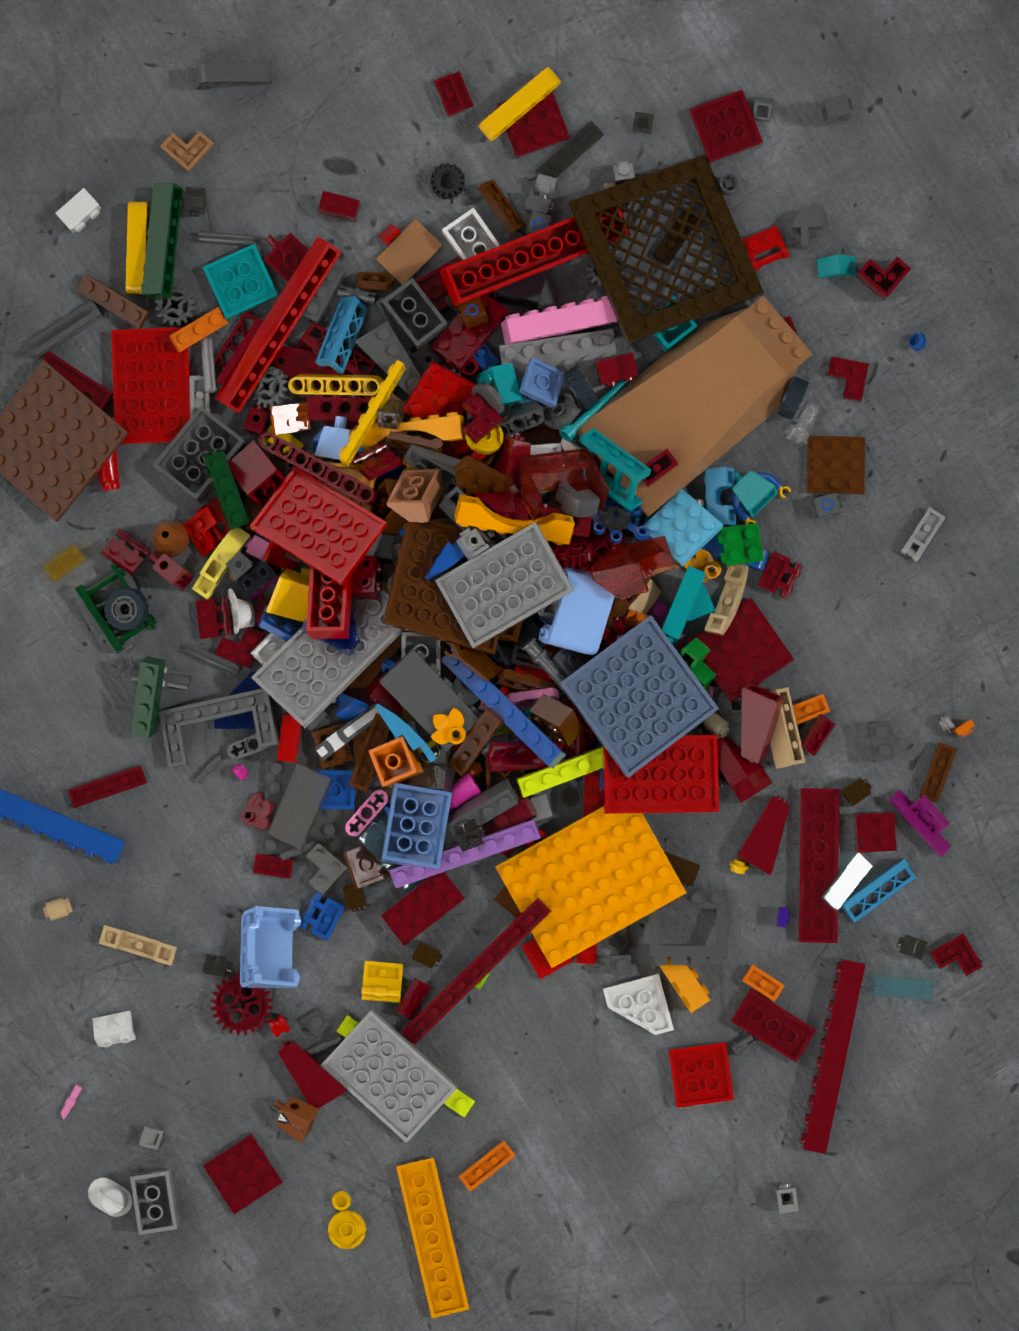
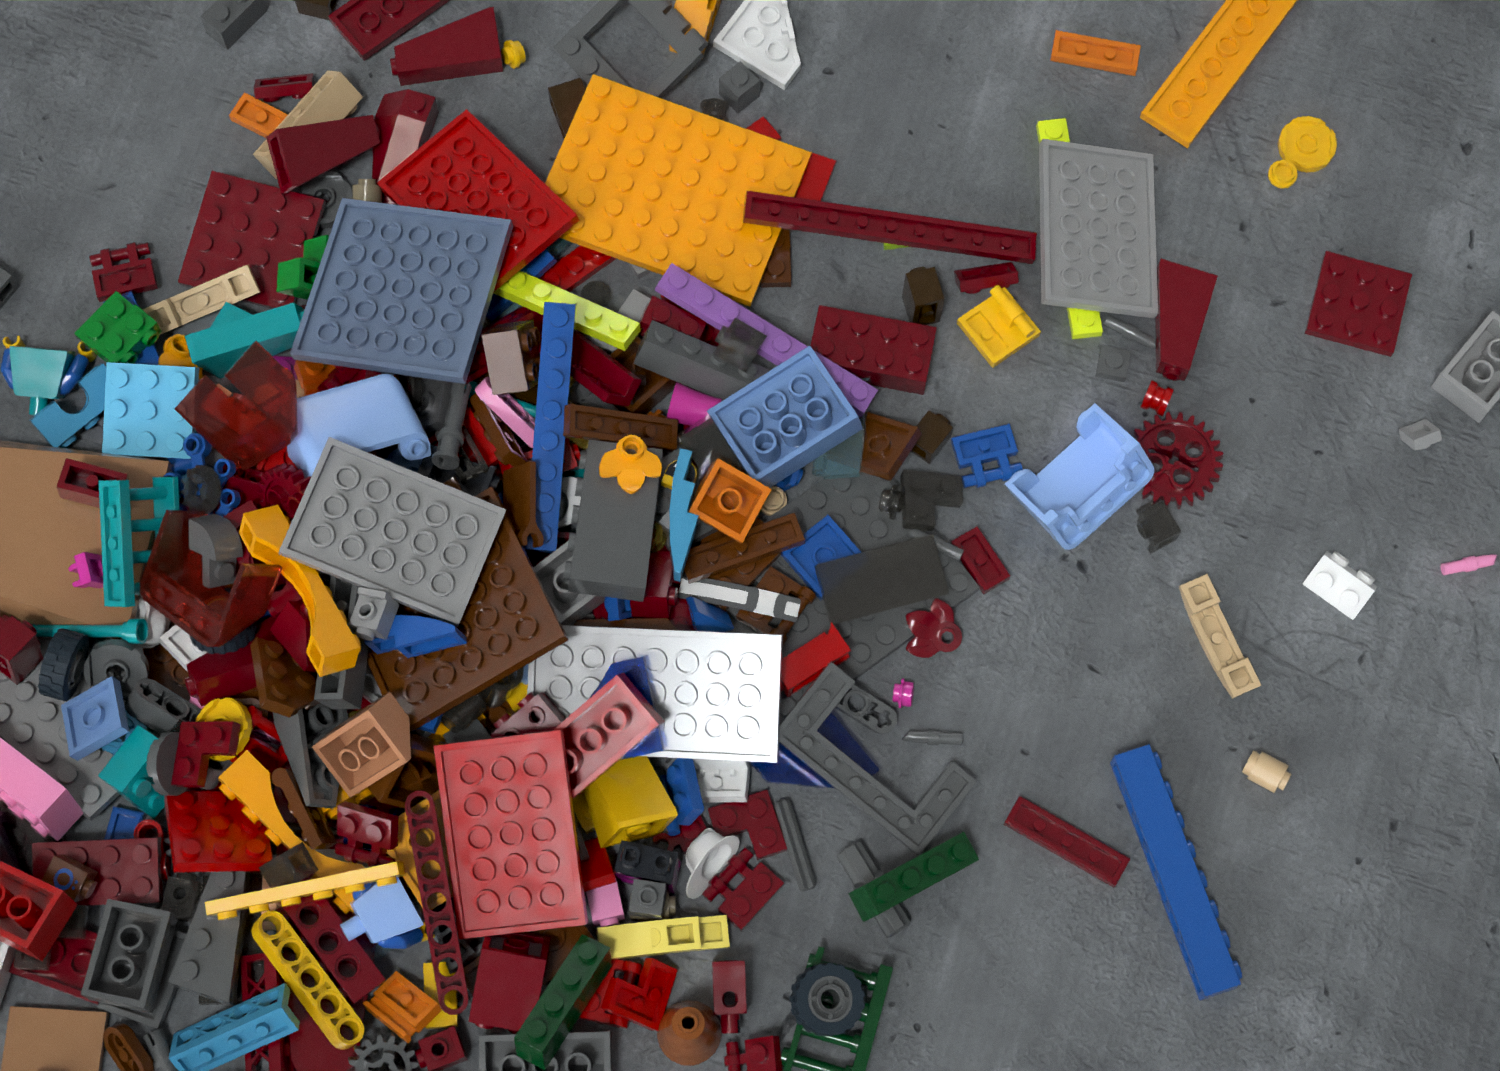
camera: 135 degrees left, 15 degrees down
(295, 1117) = (1241, 289): dark orange torso -> none
(372, 797) = (828, 490): bright pink beam -> none
(617, 434) = (89, 570): none -> dark pink tile

